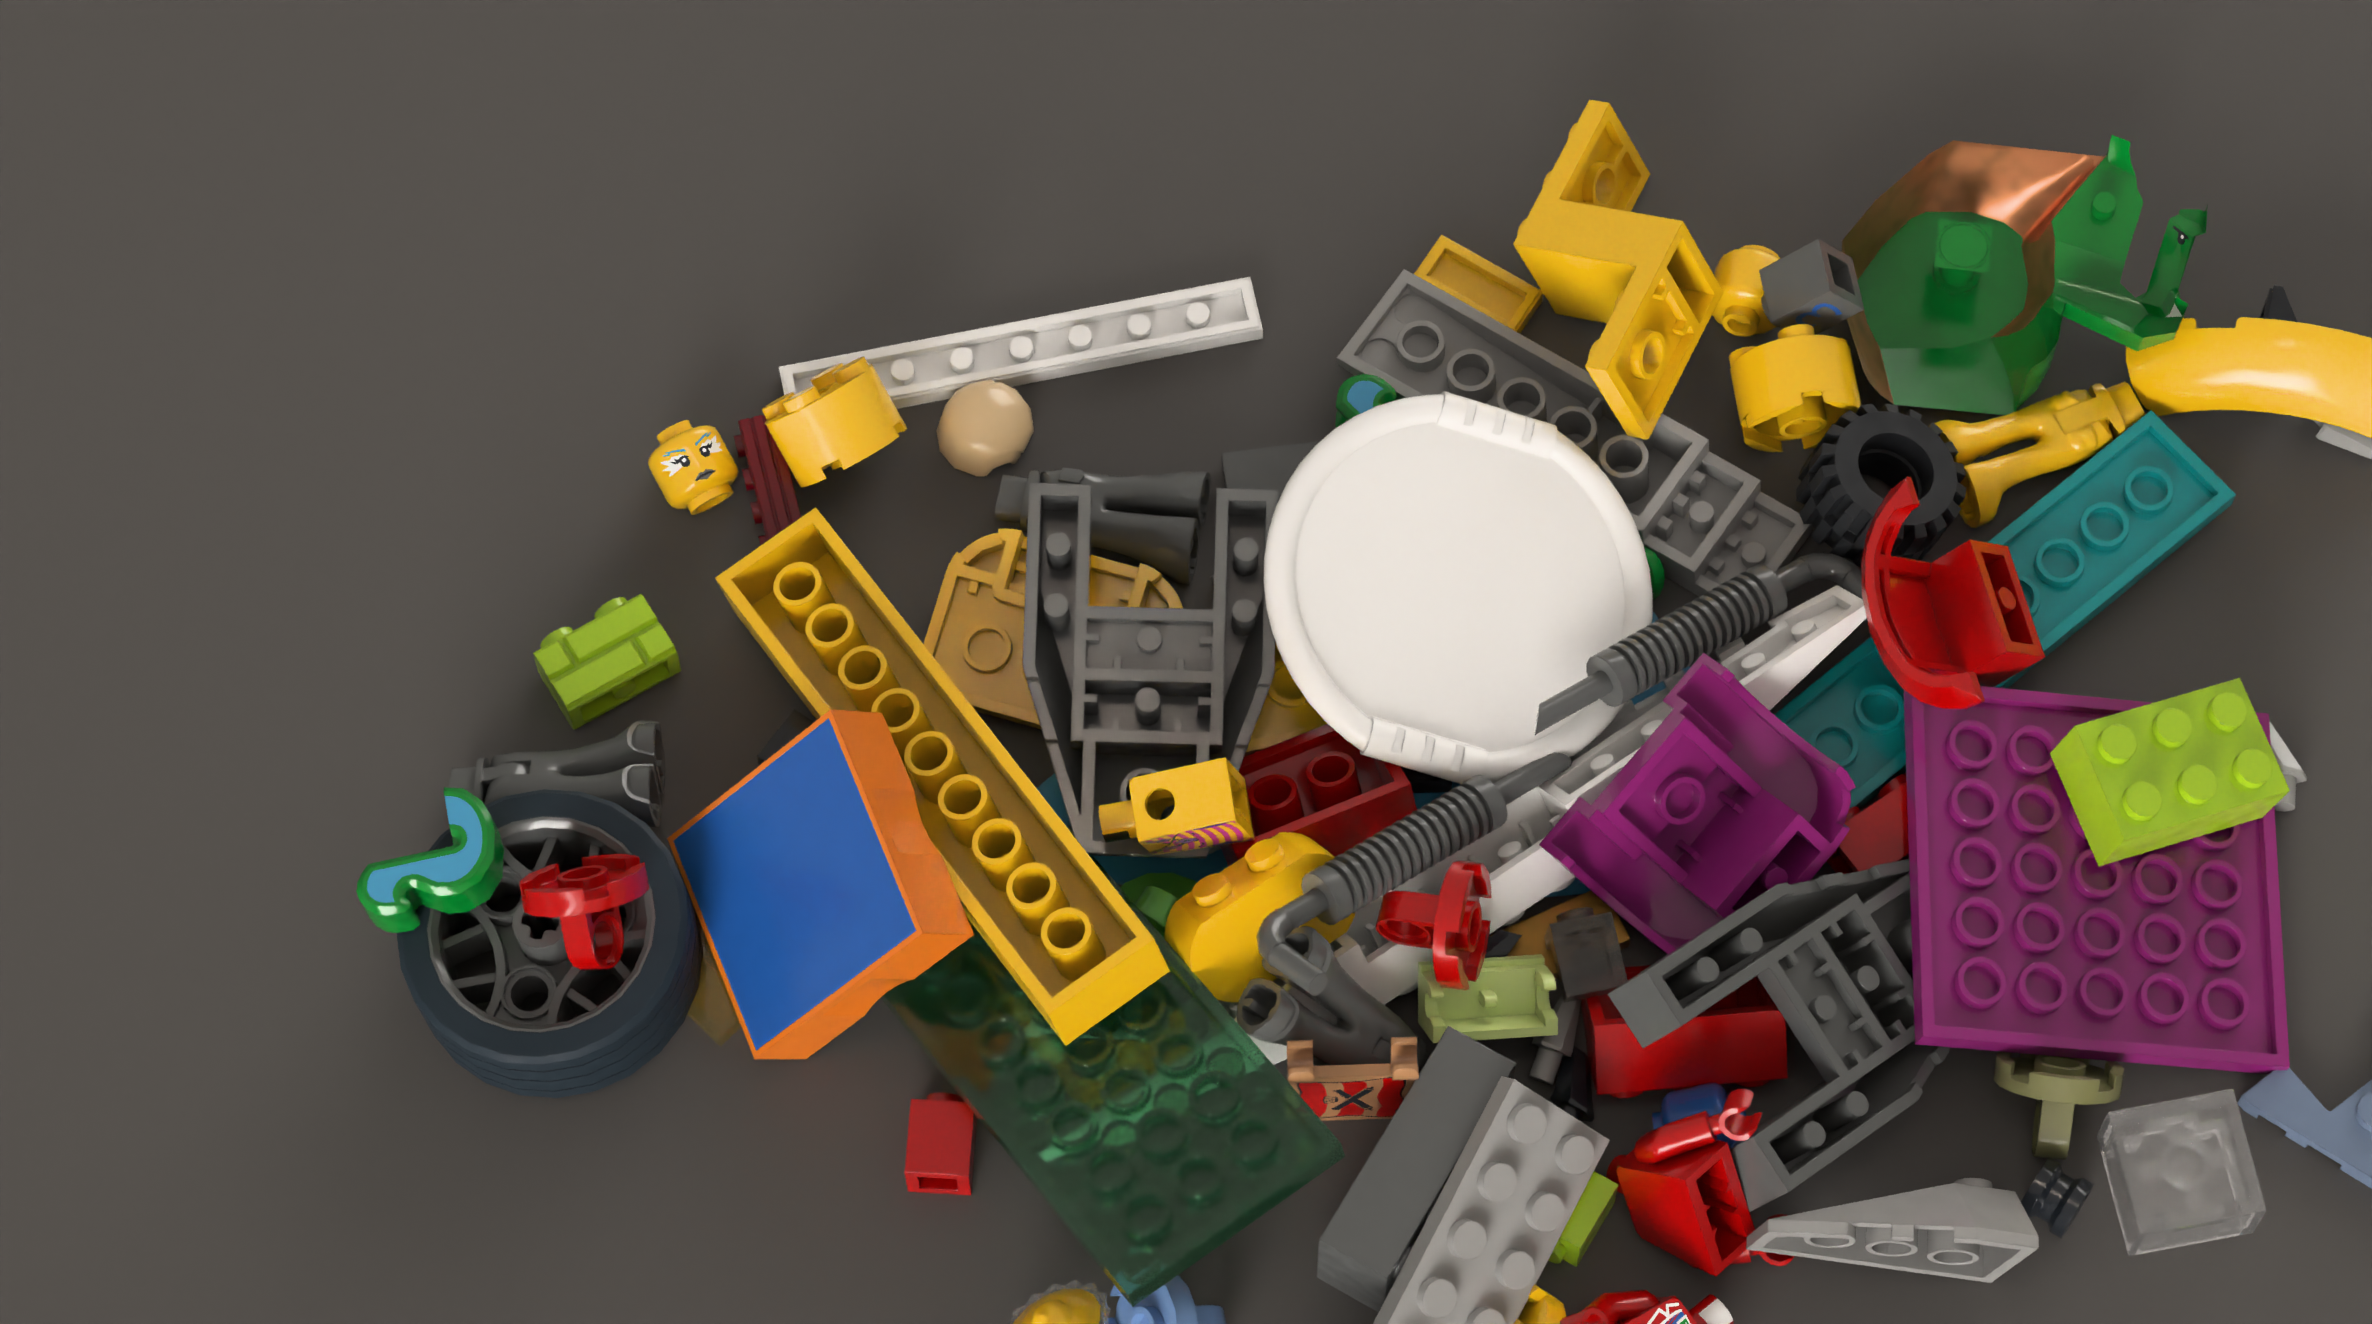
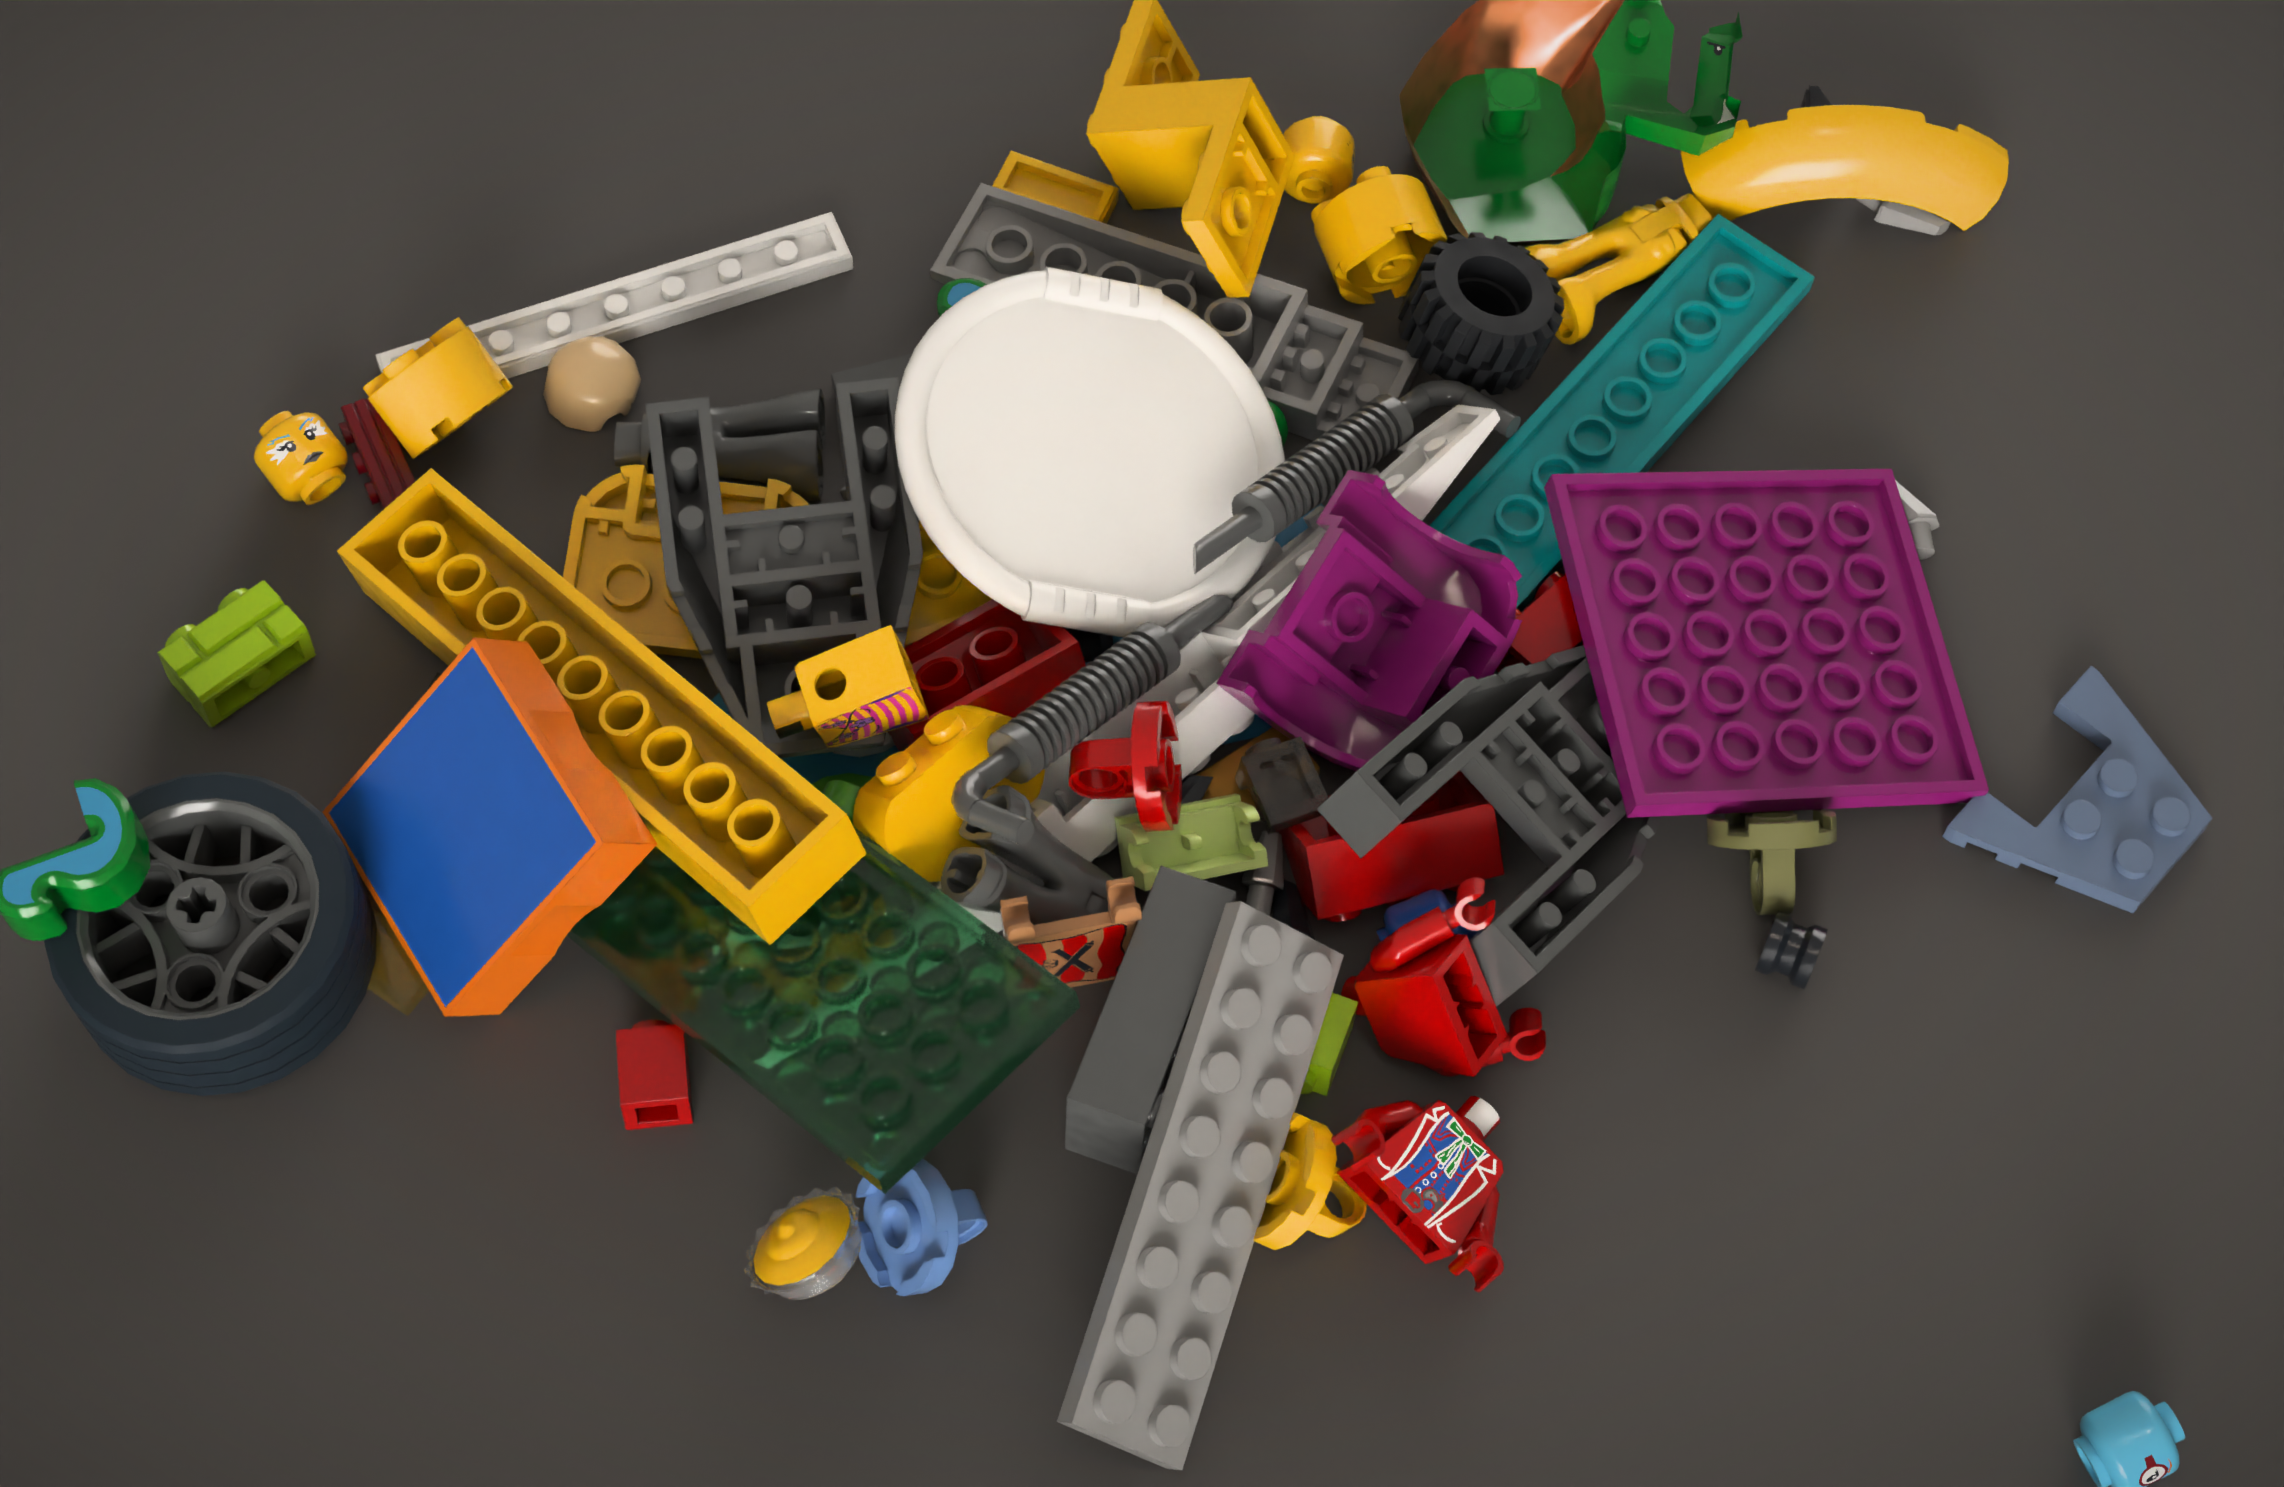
camera: 15 degrees left, 5 degrees down
(587, 902) = (244, 876): red tile -> none
(619, 770) = (269, 748): dark grey piece -> none
(1811, 288) = (1379, 133): dark grey brick -> none
(1938, 1230) = (1682, 999): light grey wedge -> none
(1945, 620) = (1577, 419): red piece -> none
(2169, 771) = (1817, 525): lime brick -> none
(2181, 1172) = (1910, 904): clear container -> none

